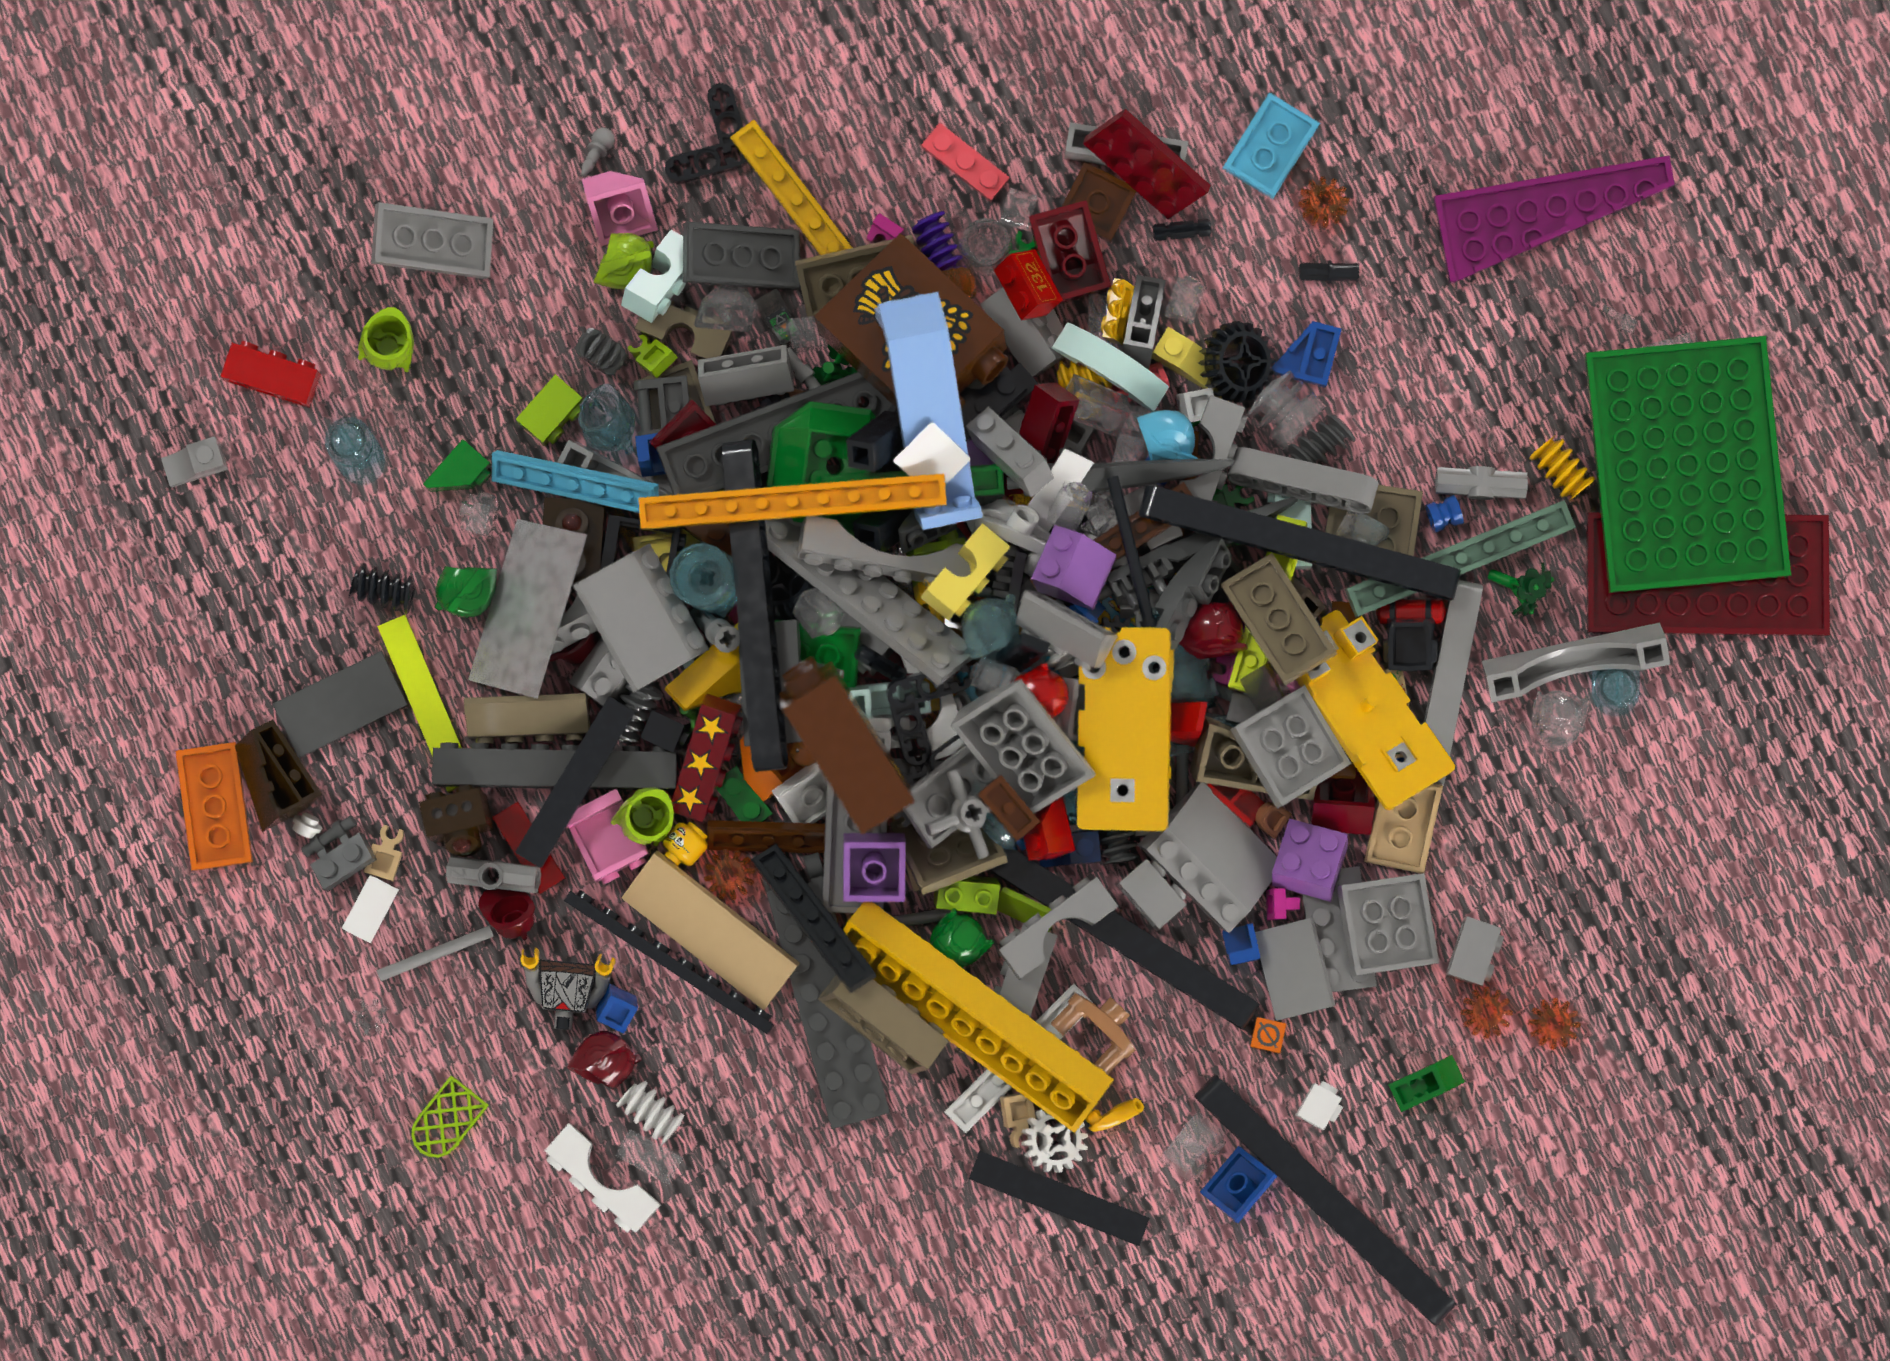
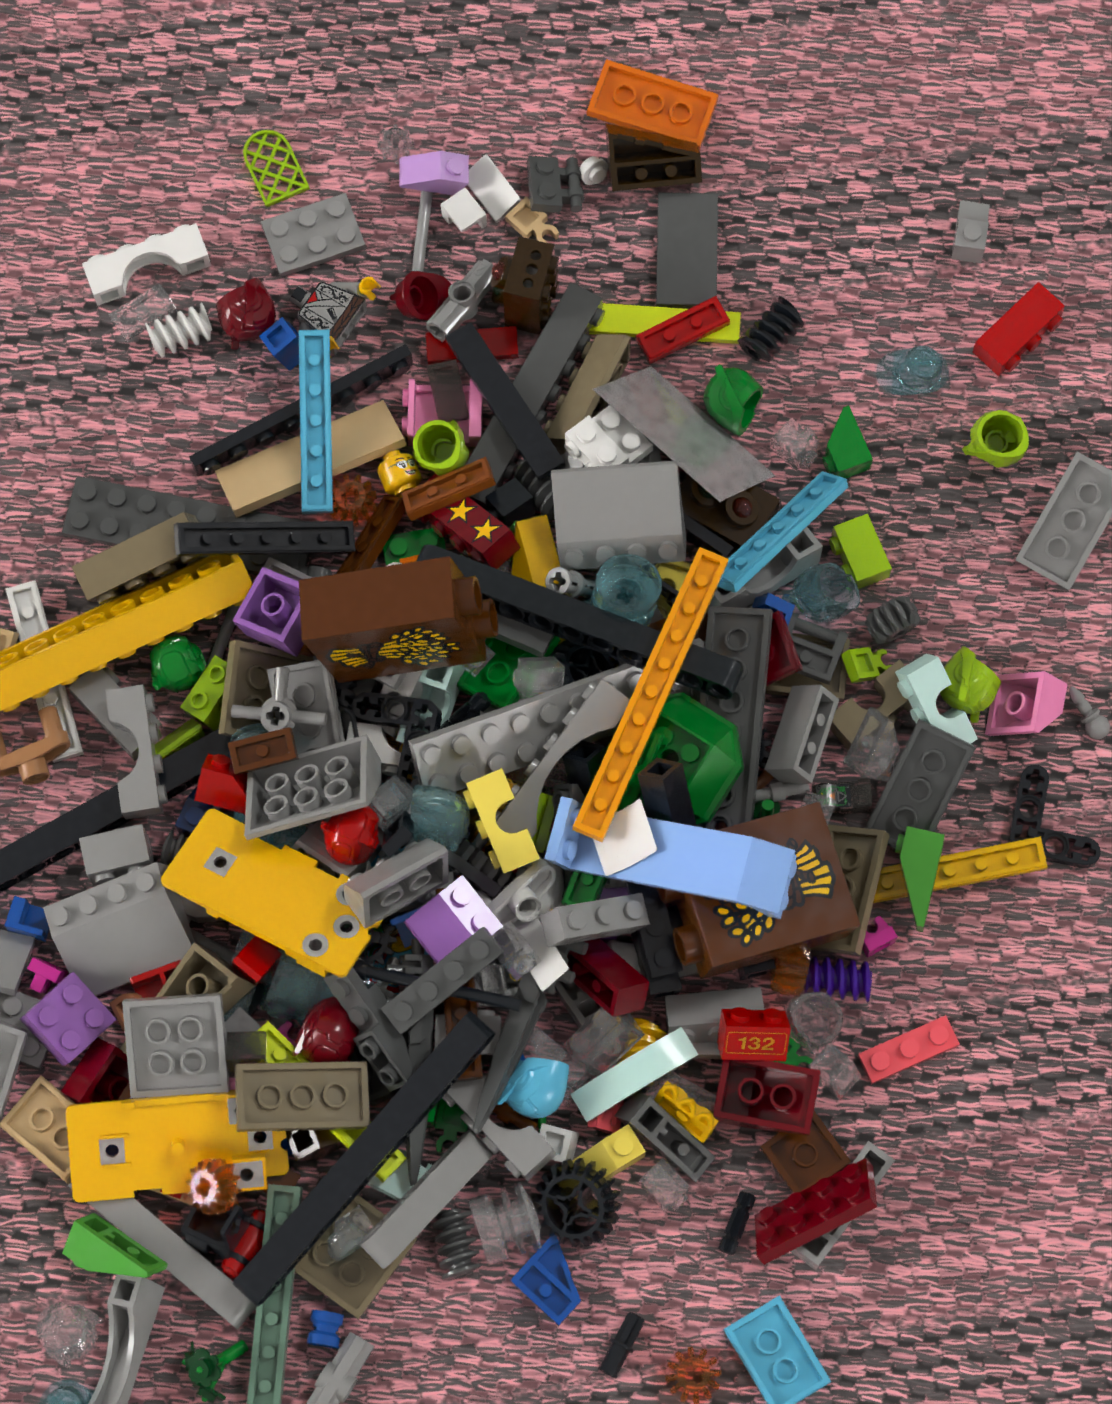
camera: 120 degrees right, 10 degrees down
(384, 964) = (434, 172): none -> lavender slope
(408, 918) = (463, 211): none -> white panel
(421, 667) = (682, 330): none -> red tile
(495, 1046) = (313, 235): none -> light grey plate
(579, 664) = (606, 440): none -> white plate
(586, 843) = (447, 391): none -> clear smoke tile
(680, 935) = (315, 421): none -> medium azure tile
(683, 786) = (448, 488): none -> dark orange tile
(807, 223) = (919, 863): none -> bright green slope
(1126, 549) = (442, 980): none -> dark grey plate
(1385, 656) = (213, 1186): none -> clear orange gear
(1479, 718) = (105, 1249): none -> bright green slope

